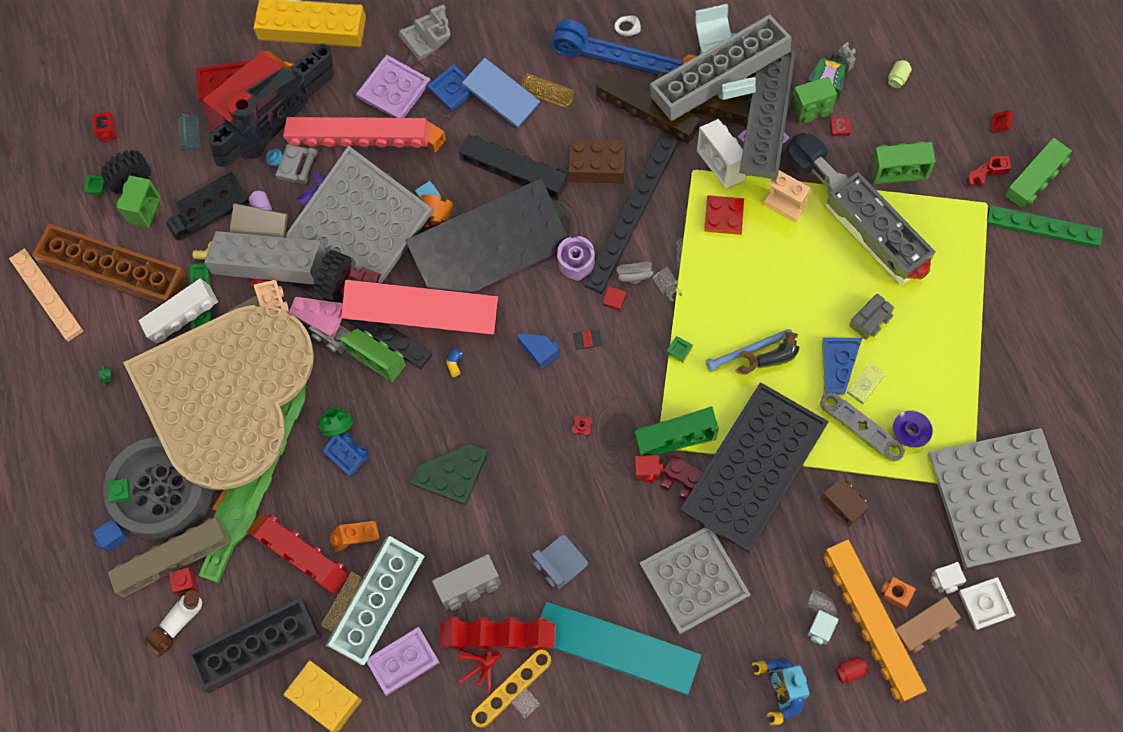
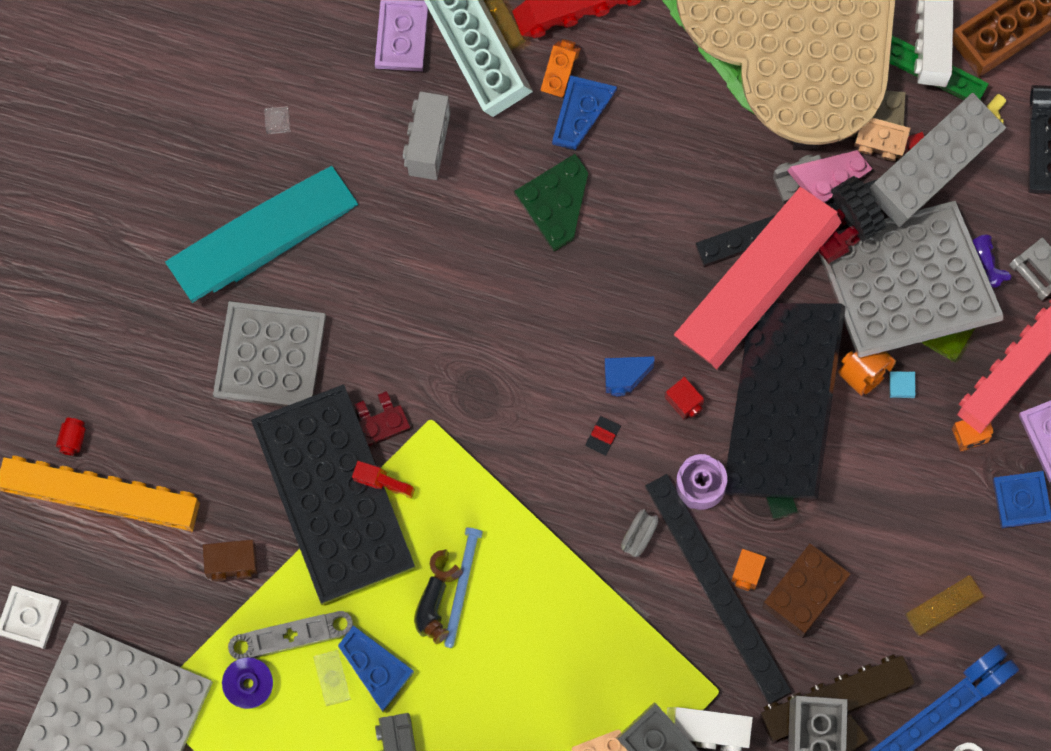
camera: 125 degrees right, 5 degrees up
(258, 221) = (985, 178): dark tan tile -> none
(260, 200) = (1014, 198): lavender brick -> none
(334, 422) = (686, 118): green piece -> none
(346, 453) = (654, 113): blue bracket -> none
(373, 354) = (742, 201): bright green slope -> none
(375, 502) = (580, 110): none -> blue wing
(452, 359) = (679, 279): arm -> none
(485, 663) = (341, 107): red plant -> none
(489, 635) = (363, 126): red brick -> none
(501, 93) = (974, 546): medium blue tile -> none
(501, 692) = (305, 126): yellow beam -> none
(511, 165) = (867, 495): black brick -> none
(529, 304) = (684, 399): none -> red brick
(559, 562) = (385, 238): sand blue bracket -> none
(577, 429) = (510, 367): red plate -> none
(608, 200) = (748, 570): none -> orange brick
(614, 298) = (627, 494): red tile -> none
(648, 468) = (414, 391): red brick -> none
(666, 282) = (605, 559): clear plate -> none
(677, 433) = (425, 438): green wedge -> none
(679, 349) = (515, 513): green plate -> none
(724, 215) = (636, 681): red plate -> none
(726, 442) = (377, 478): none -> red piece
(788, 685) = (103, 363): torso -> none
(822, 602) = (151, 460): clear brick -> none
(822, 628) = (129, 439): light aqua brick -> none
(906, 593) = (94, 535): orange brick -> none
(928, 625) = (53, 540): medium nougat brick -> none
(948, 578) = (80, 598): white brick -> none

